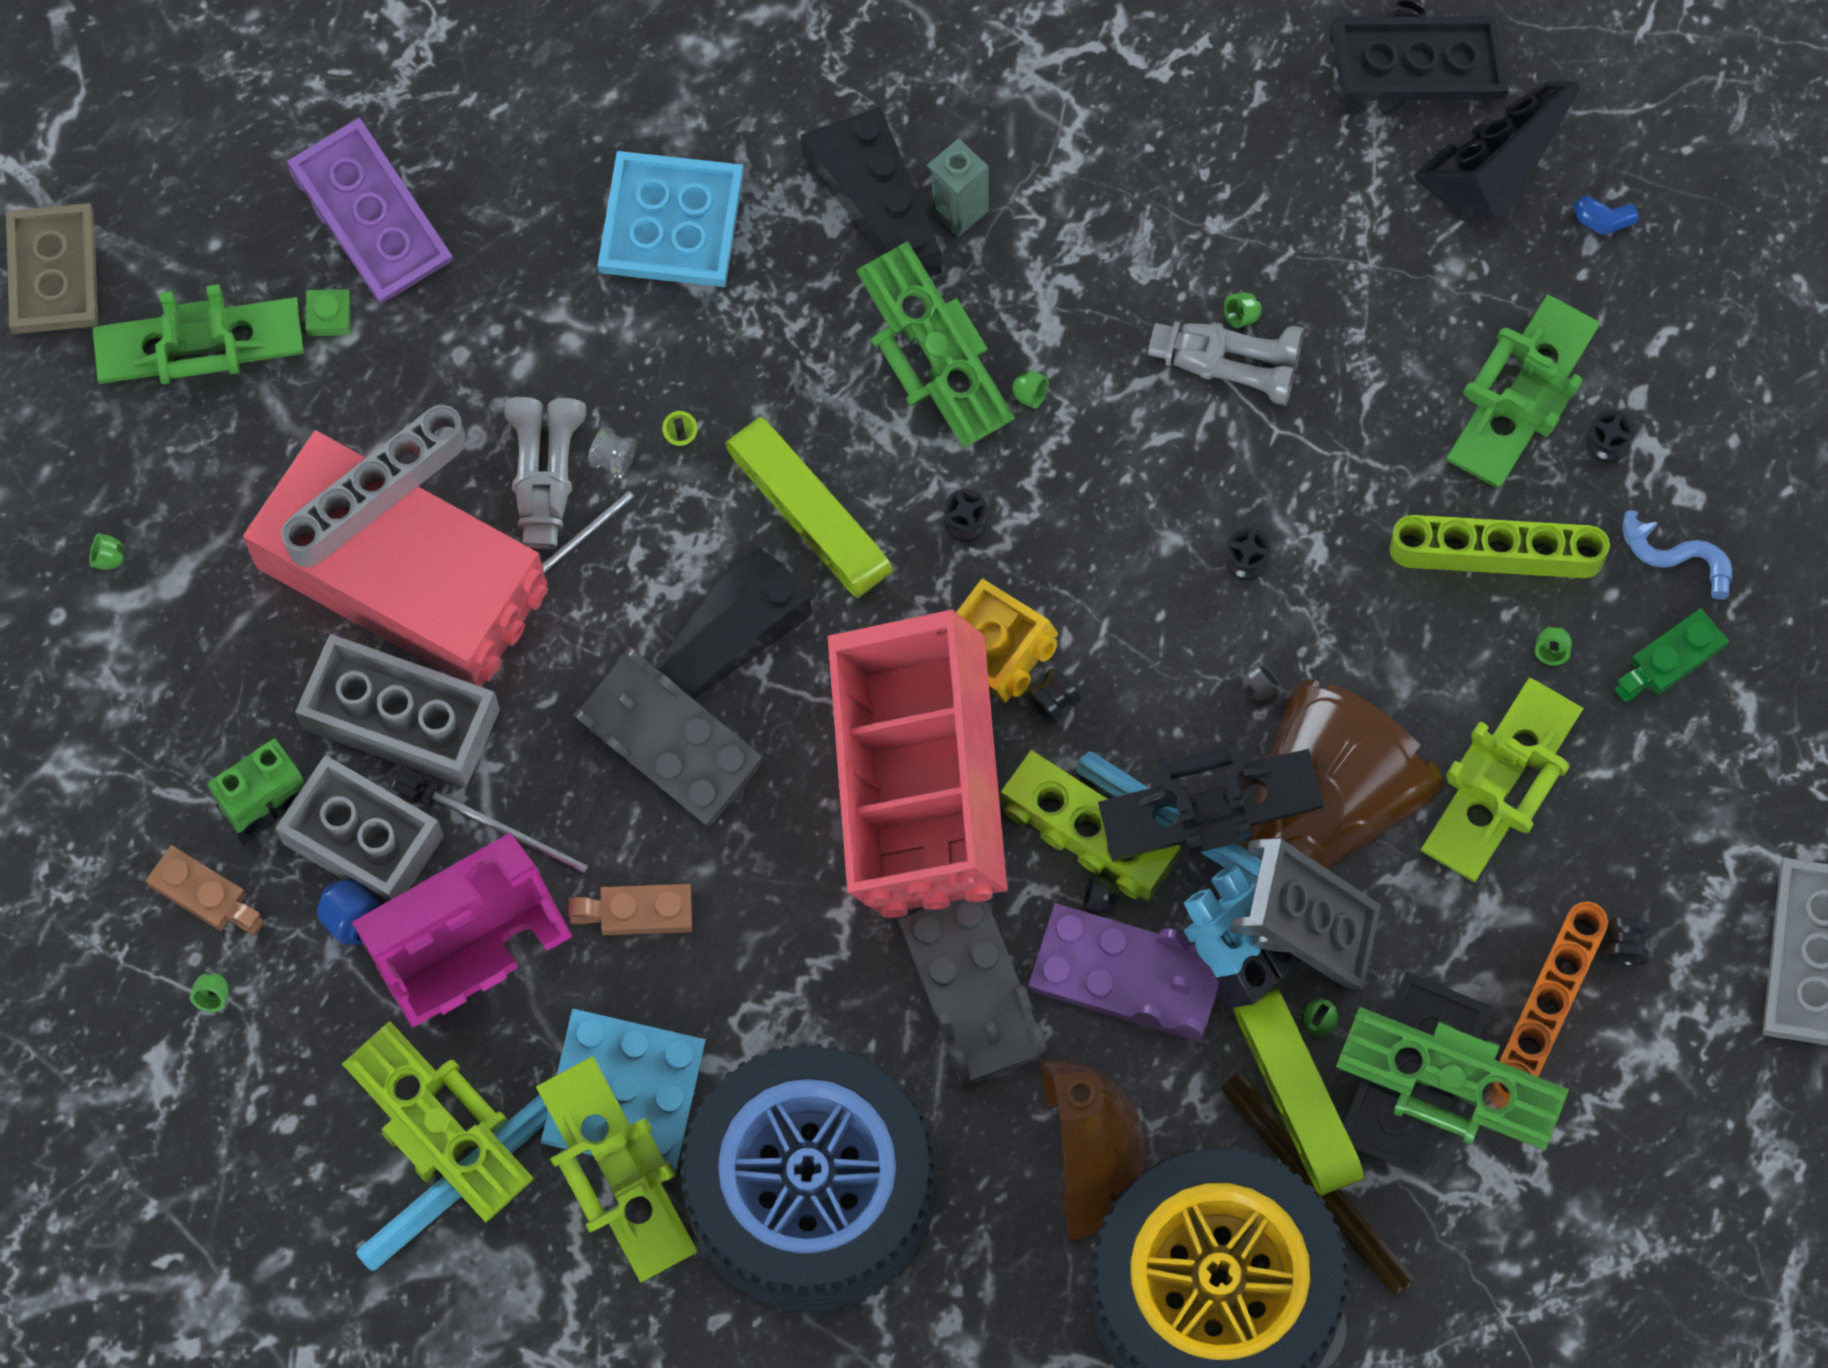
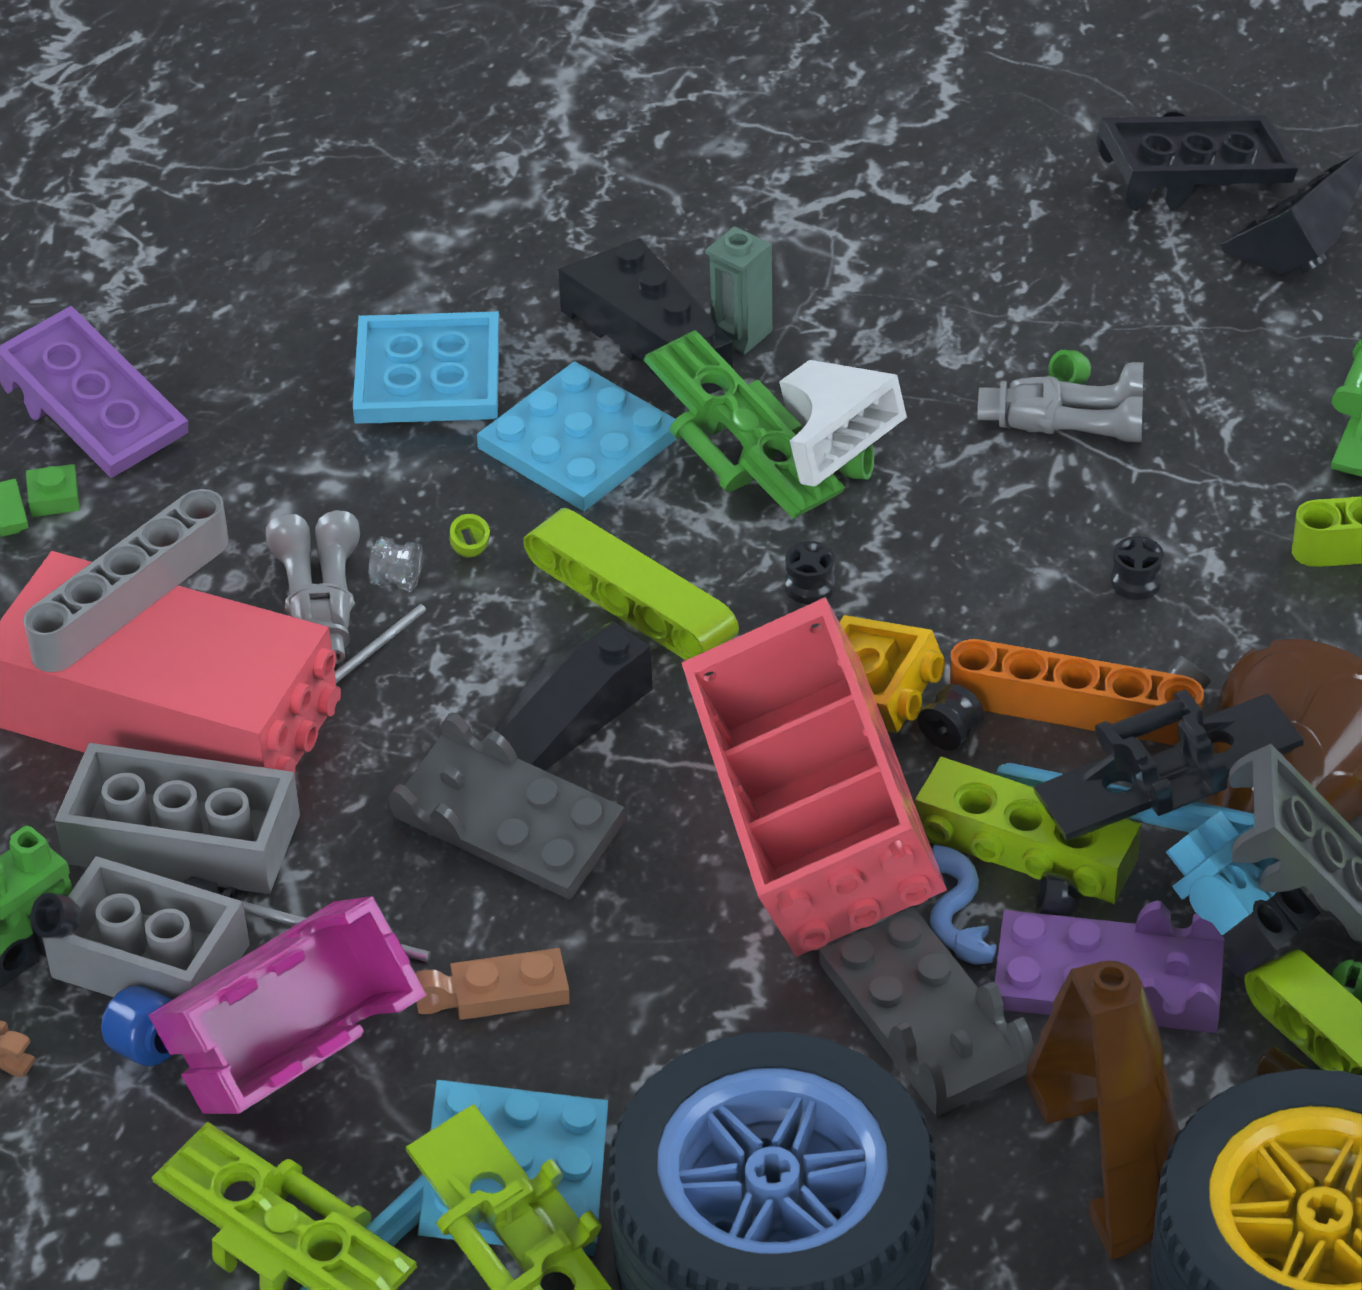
camera: 10 degrees left, 25 degrees down
(284, 813) = (55, 915): none -> black hinge
(794, 318) = (578, 435): none -> medium azure plate
(1019, 929) = (965, 943): none -> medium blue animal
(1028, 351) = (839, 414): none -> white arch
(1150, 668) = (1064, 687): none -> orange beam

